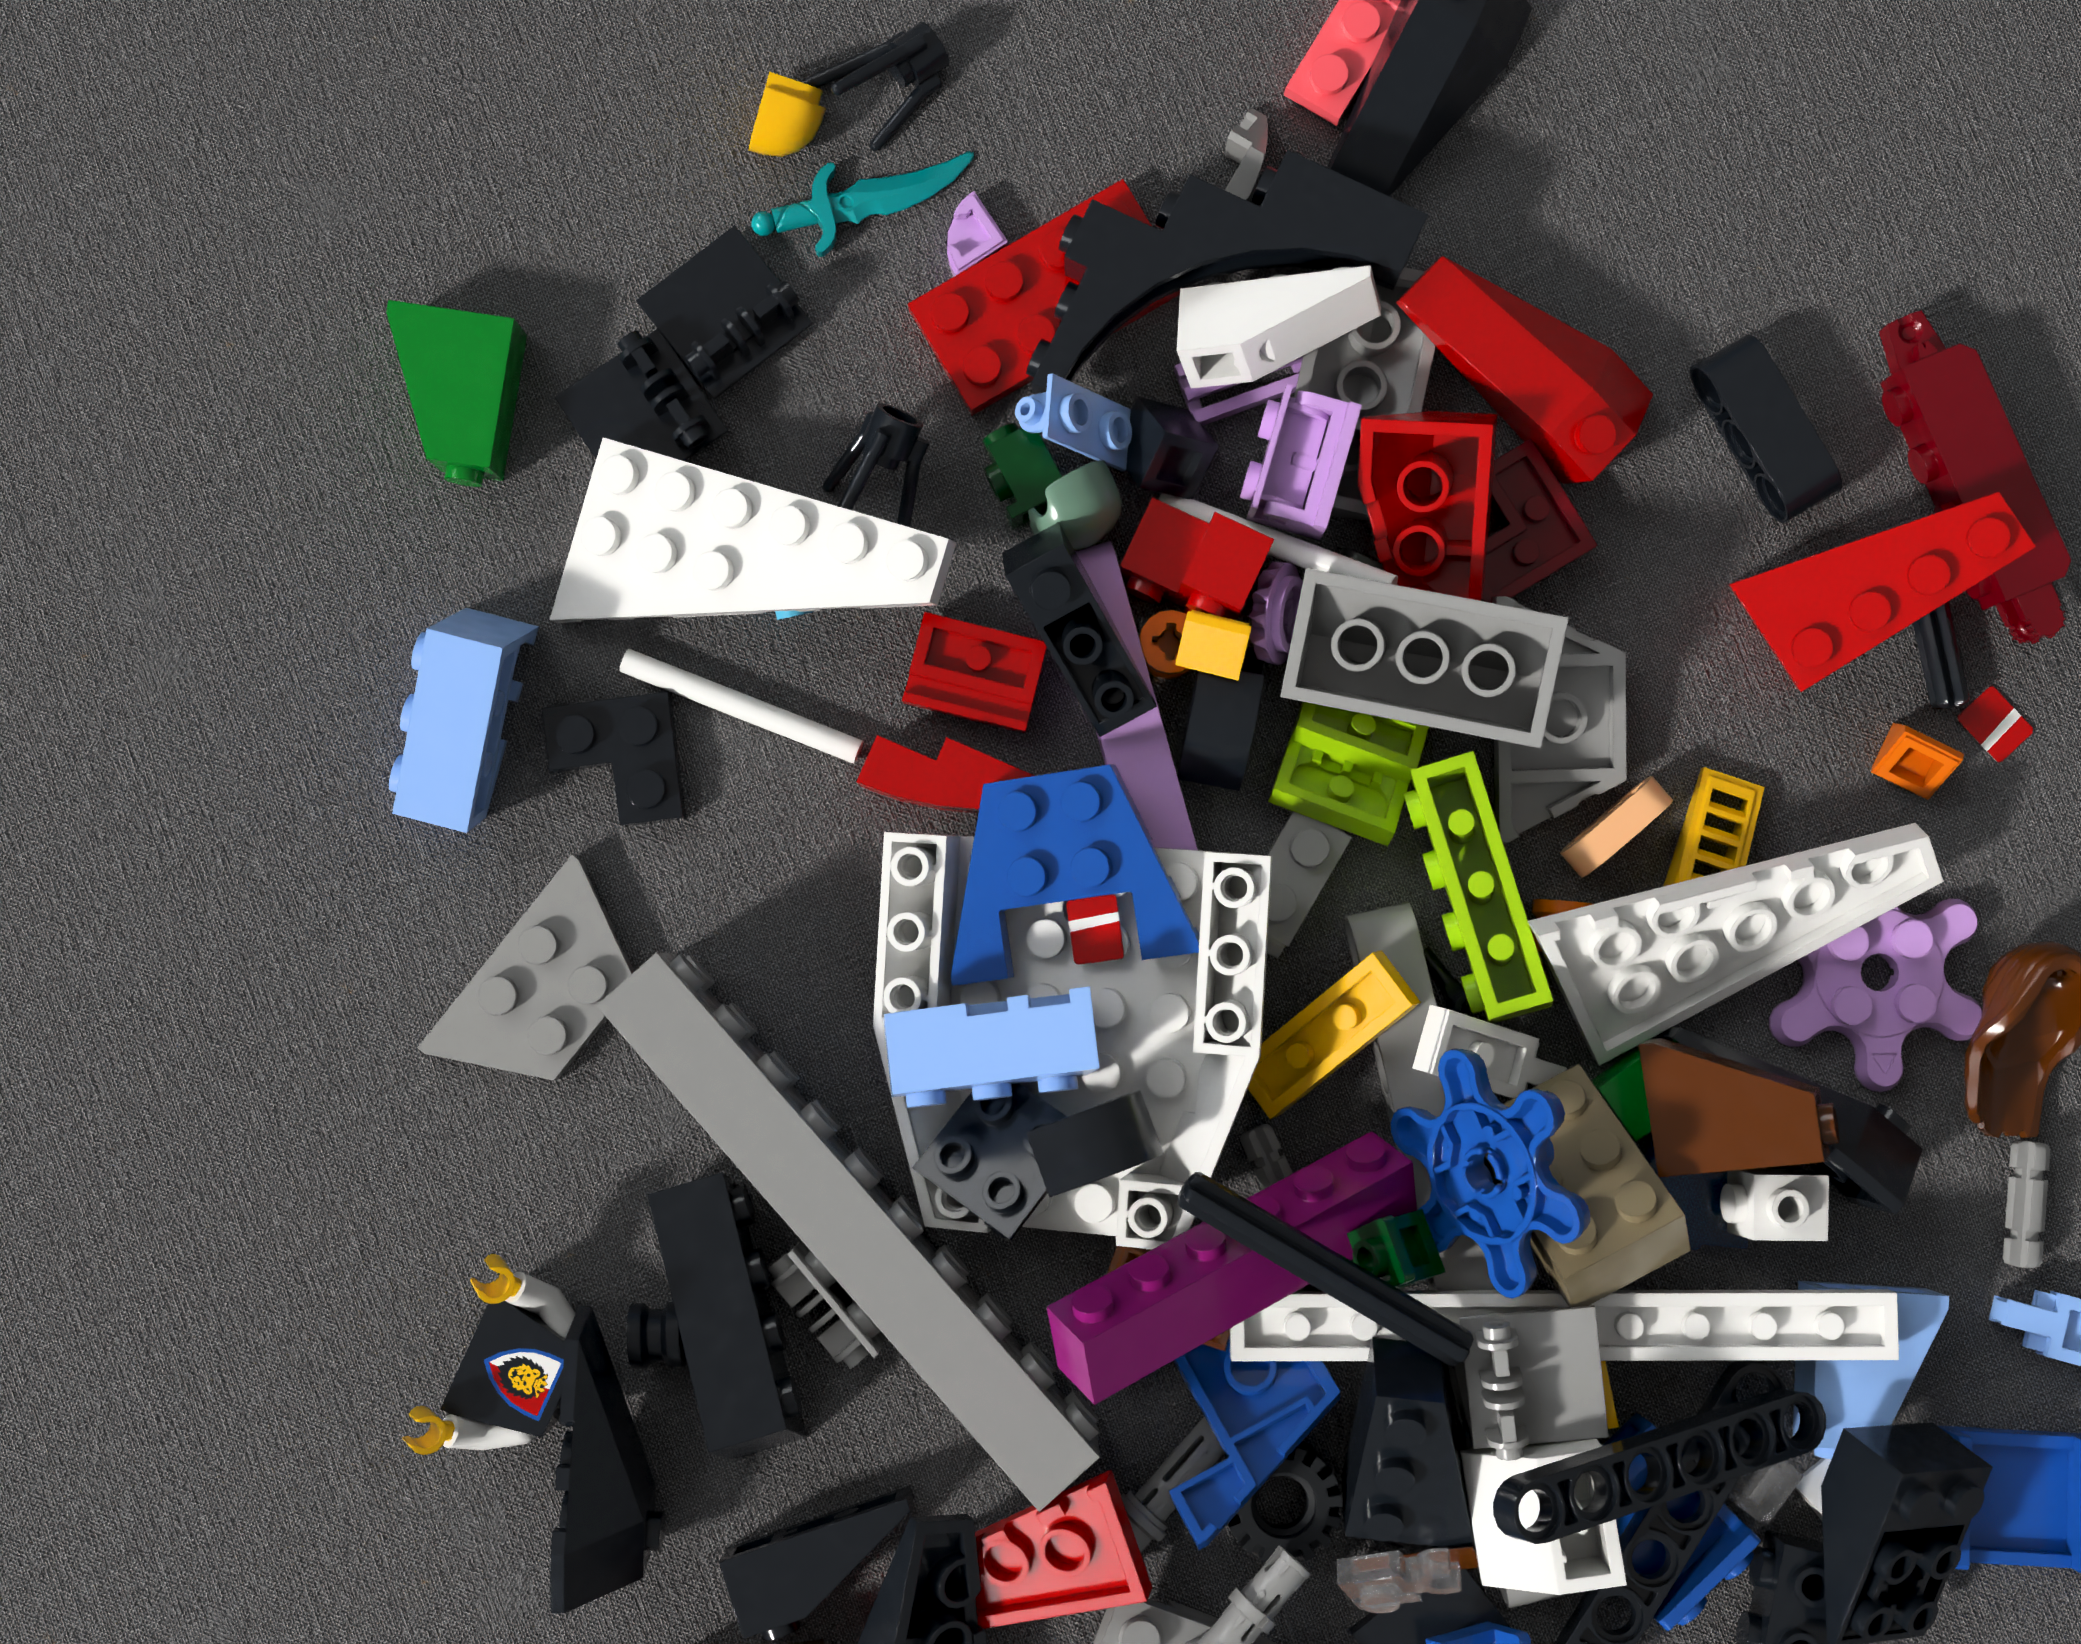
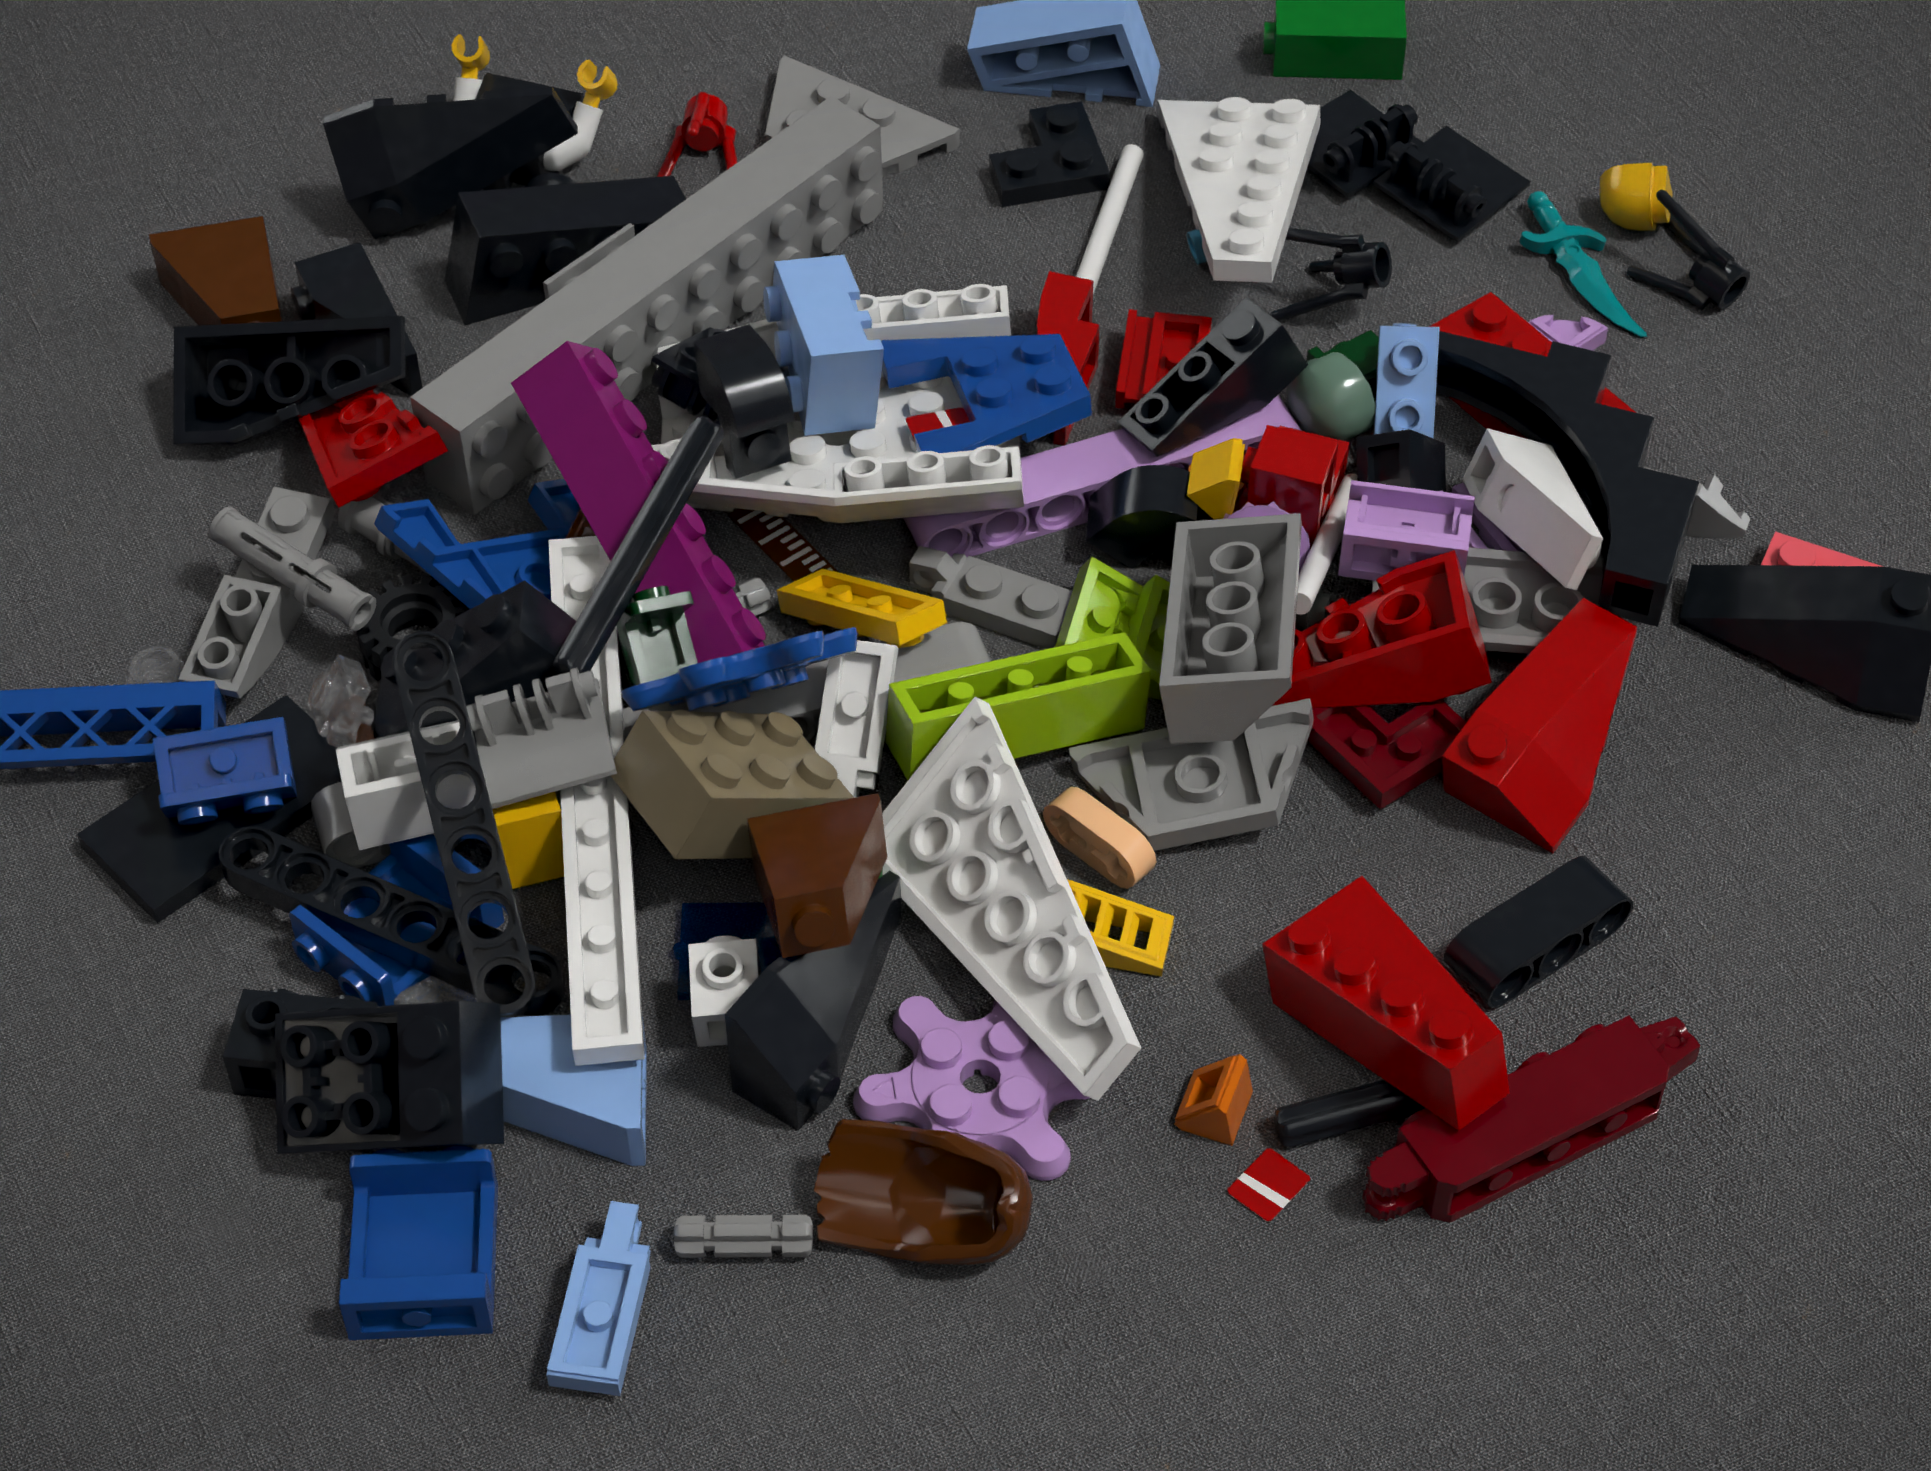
camera: 85 degrees right, 35 degrees down
(534, 1153) = (702, 129): none -> red plant

